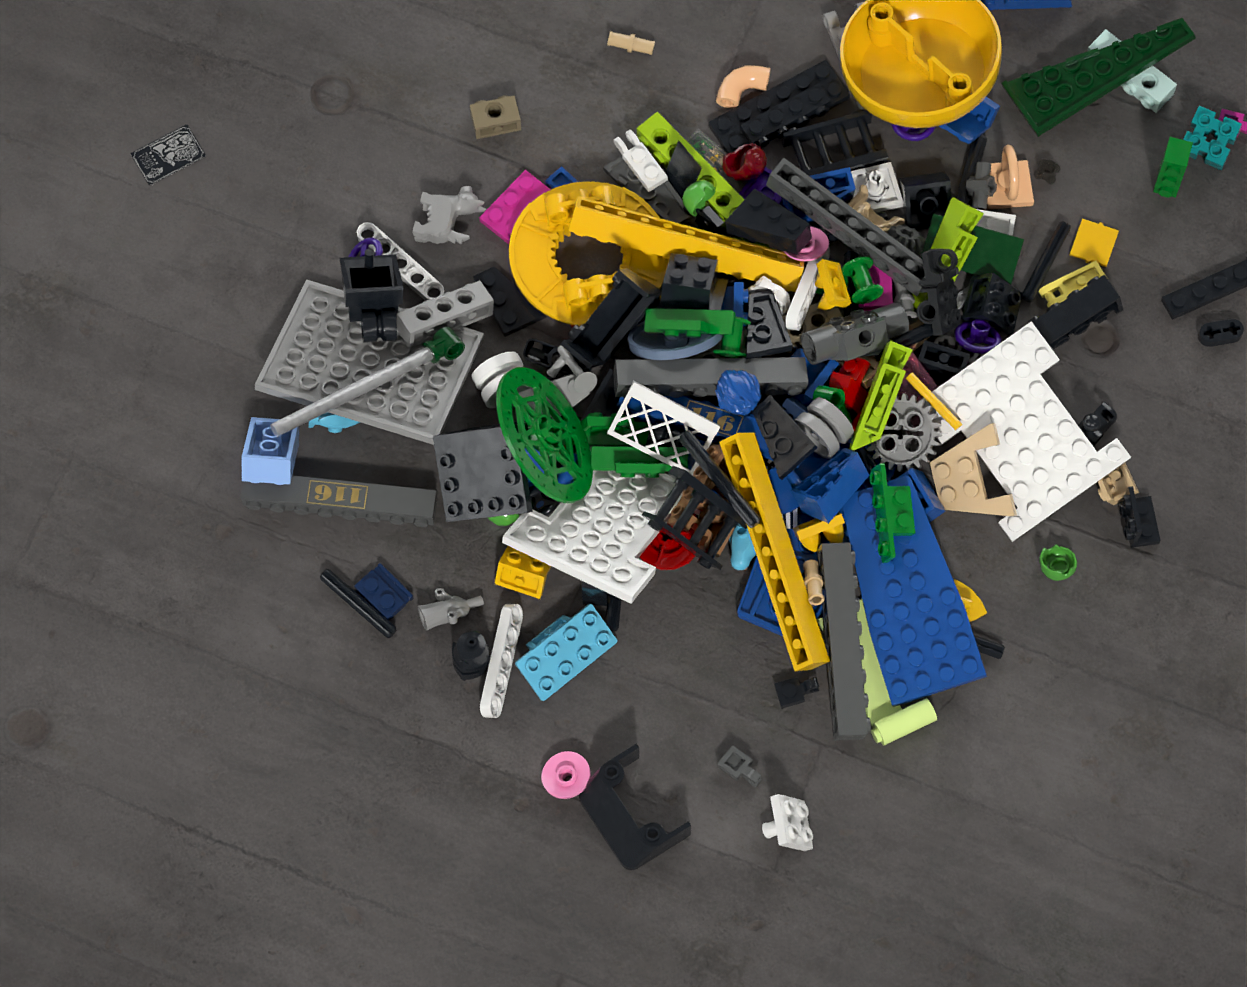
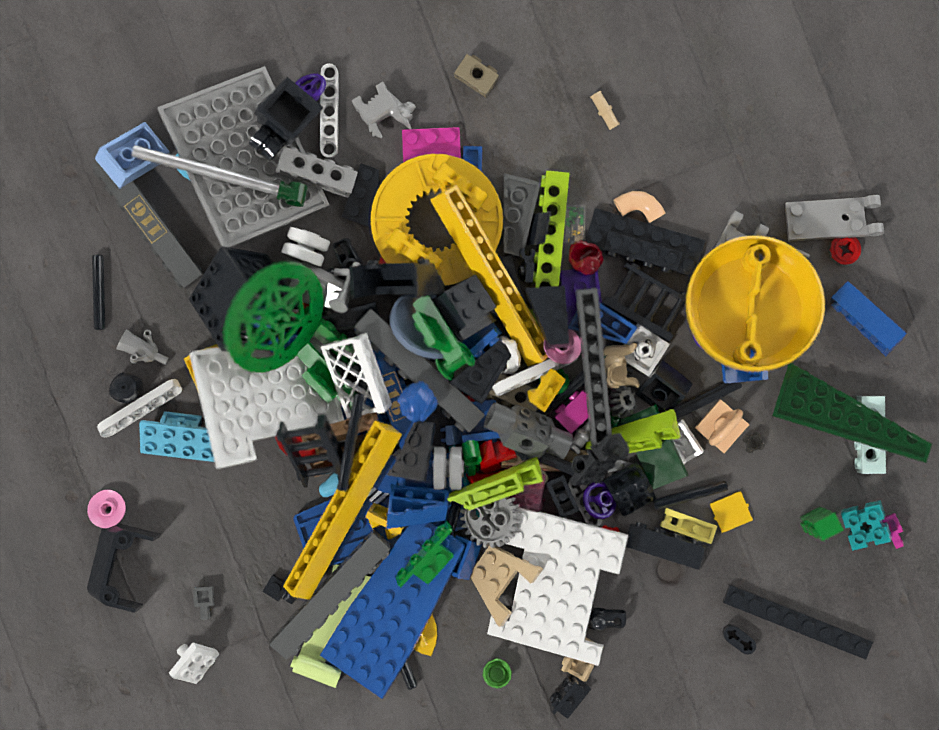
camera: 40 degrees right, 20 degrees up
(383, 592) = (119, 300): dark blue plate -> none
(641, 162) = (527, 195): white hinge -> none
(697, 195) = (530, 252): bright green hair -> none
(813, 582) = (347, 548): tan pin -> none
(865, 288) = (567, 404): green hose -> none
(933, 401) = (524, 520): yellow bar -> none
(981, 185) = (703, 414): dark grey axle -> none

